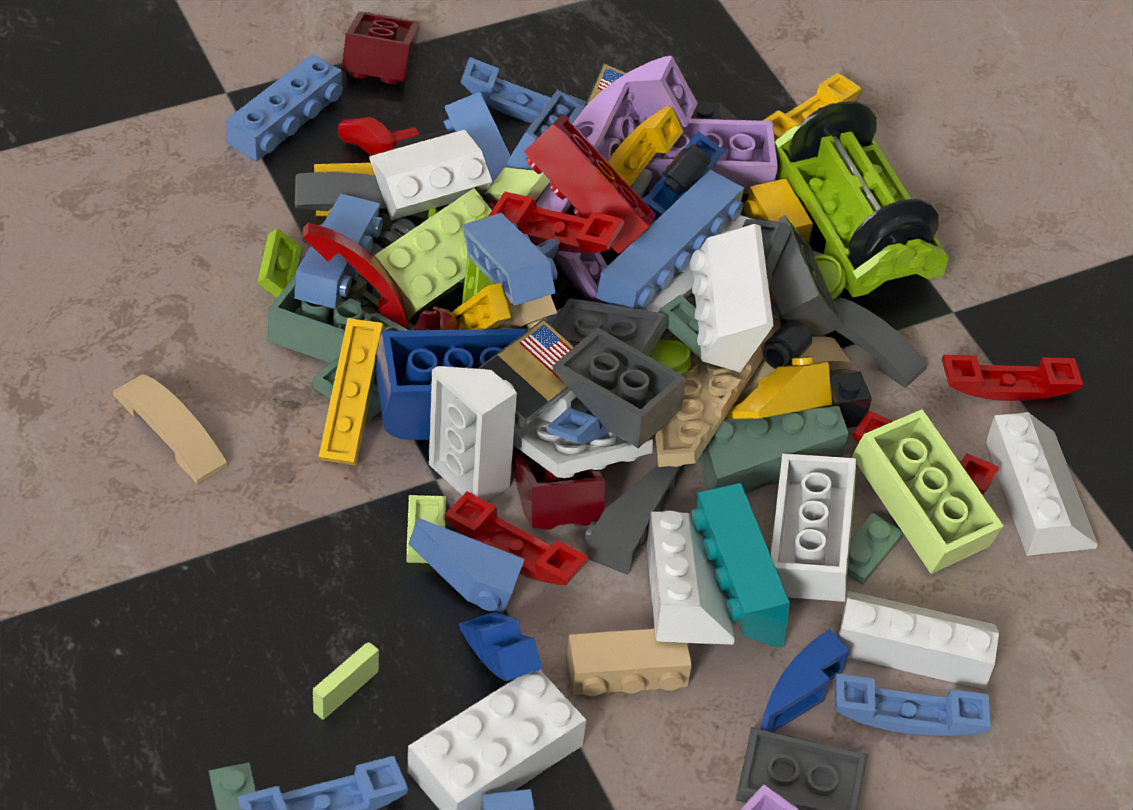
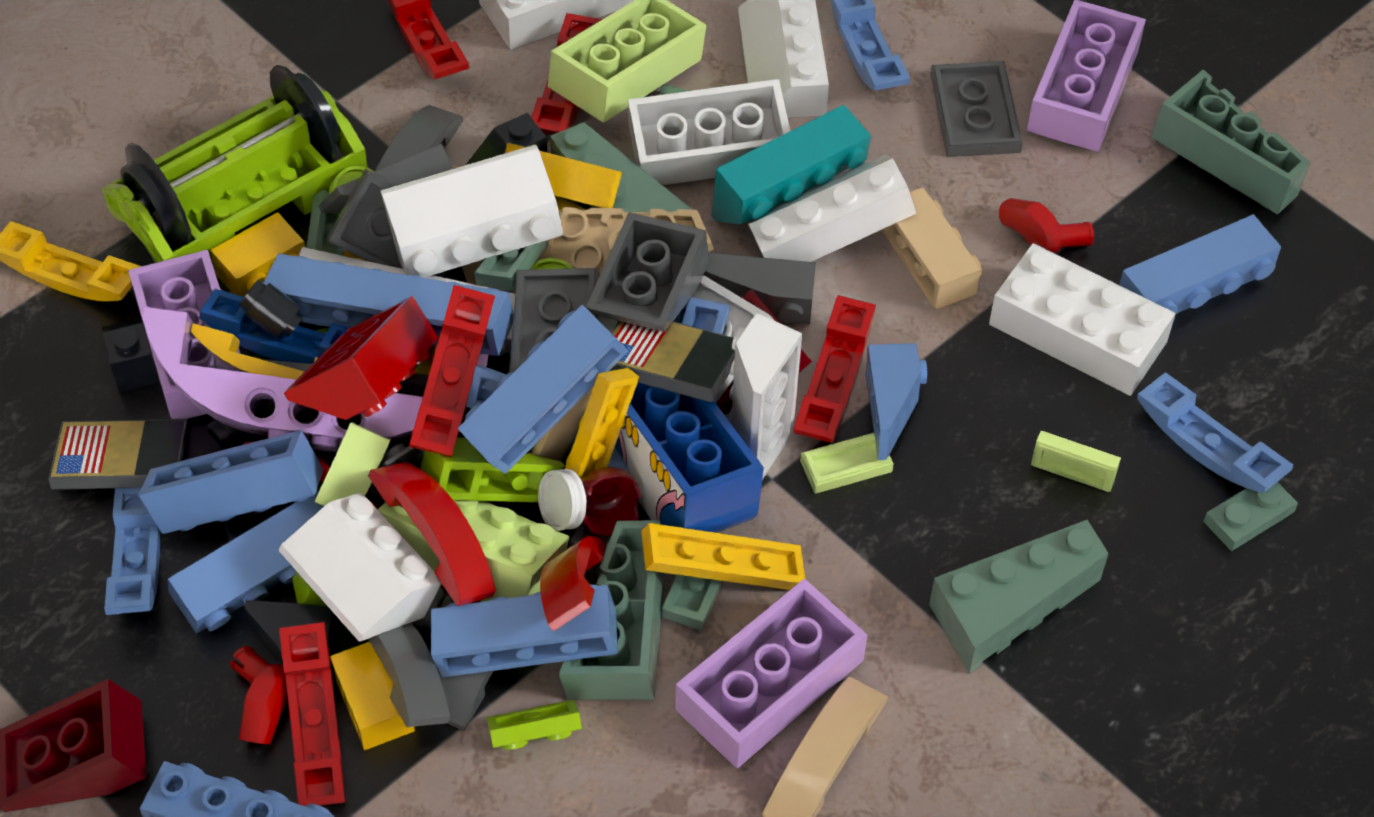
camera: 105 degrees left, 5 degrees up
(235, 572) = (1014, 590): none -> sand green wedge
(244, 399) = (770, 673): none -> lavender brick
(303, 153) = (312, 715): none -> red slope
(433, 206) = (440, 521): none -> red slope
(445, 299) = (562, 499): none -> white piece
(502, 645) = (977, 338): blue slope -> none
(615, 760) = (1040, 226): none -> red arm
(805, 681) = (891, 118): blue slope -> none

